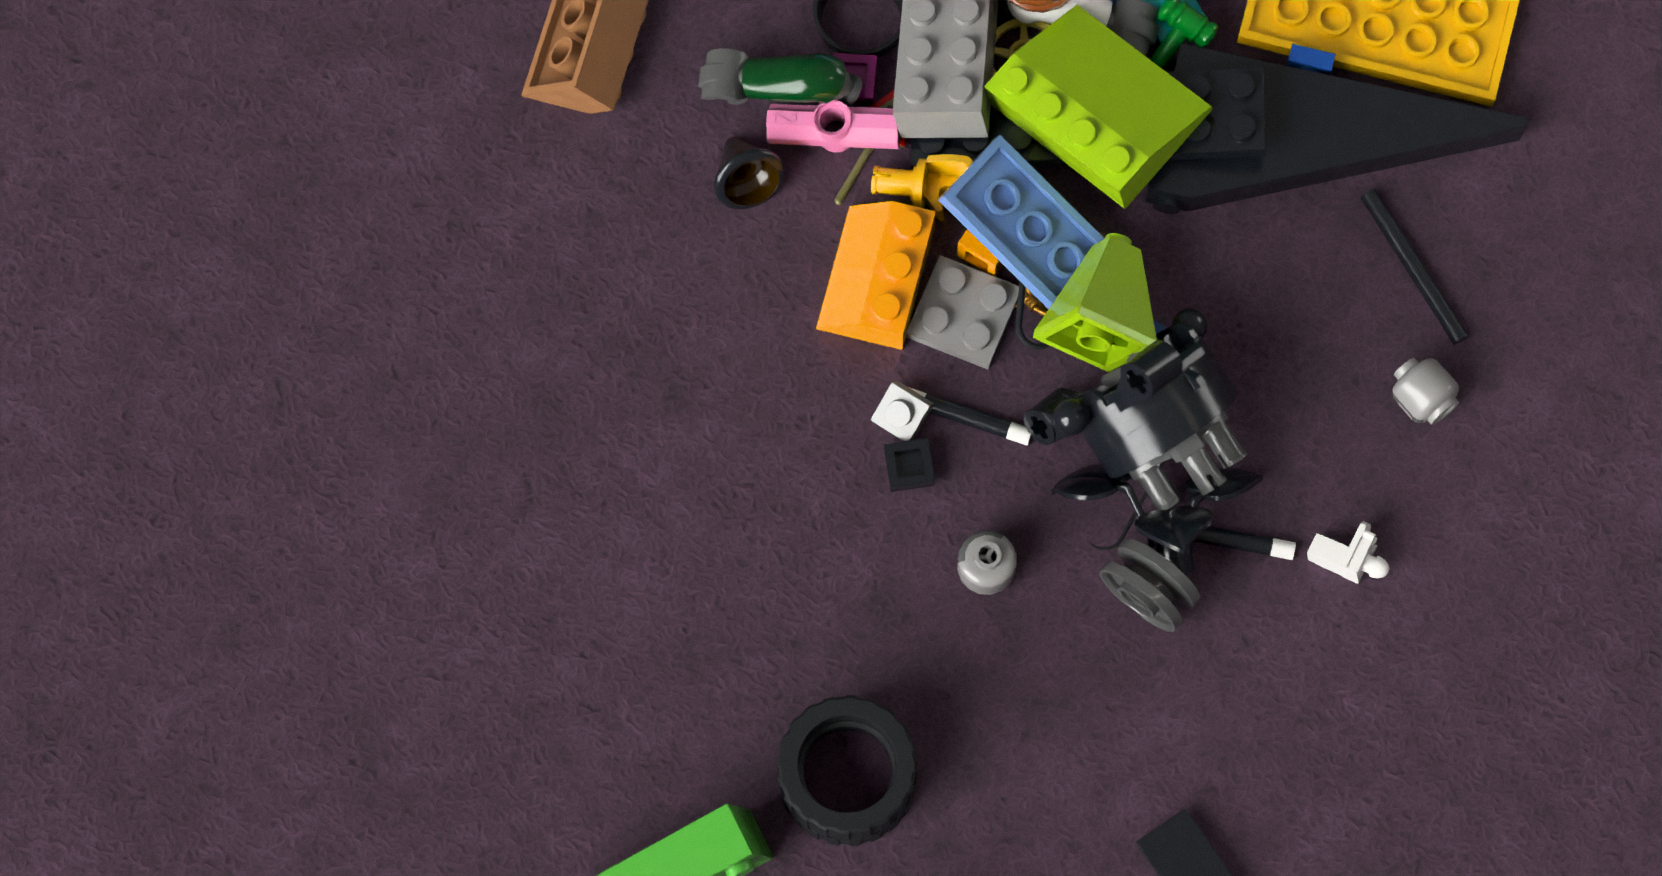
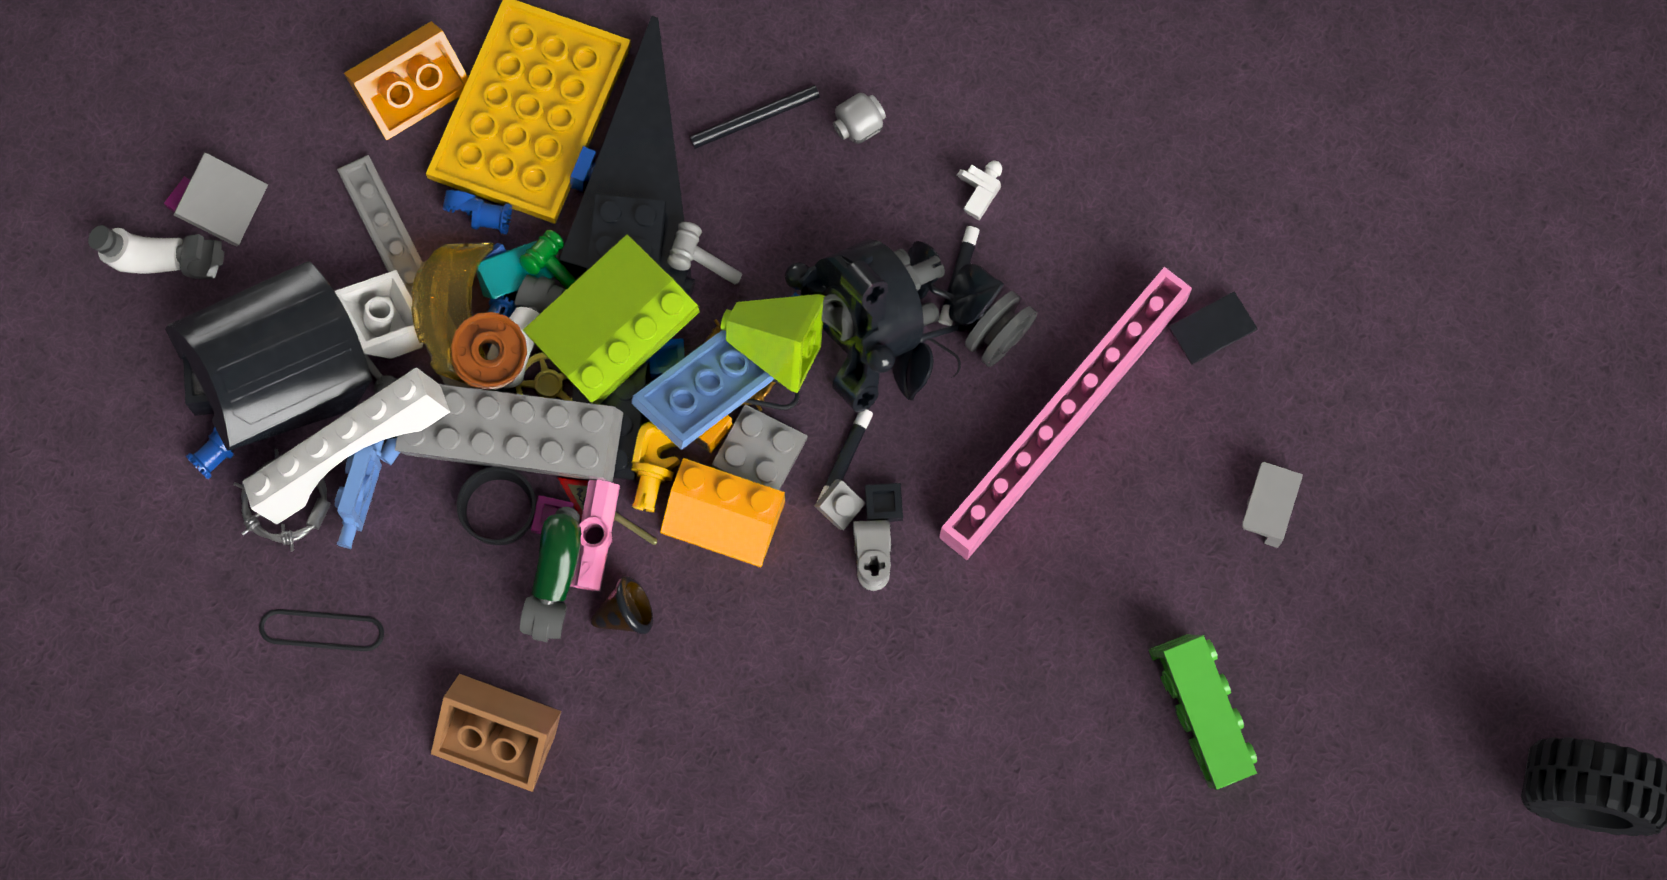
camera: 90 degrees left, 0 degrees up
(841, 715) = (1143, 526): black tyre -> none
(847, 455) = (872, 548): none -> light grey piece
(985, 577) = (970, 460): light grey head -> none
(1049, 679) = (1064, 414): none -> bright pink brick
(1073, 188) = (666, 357): none -> blue plate
(1210, 185) = (686, 250): none -> light grey piece

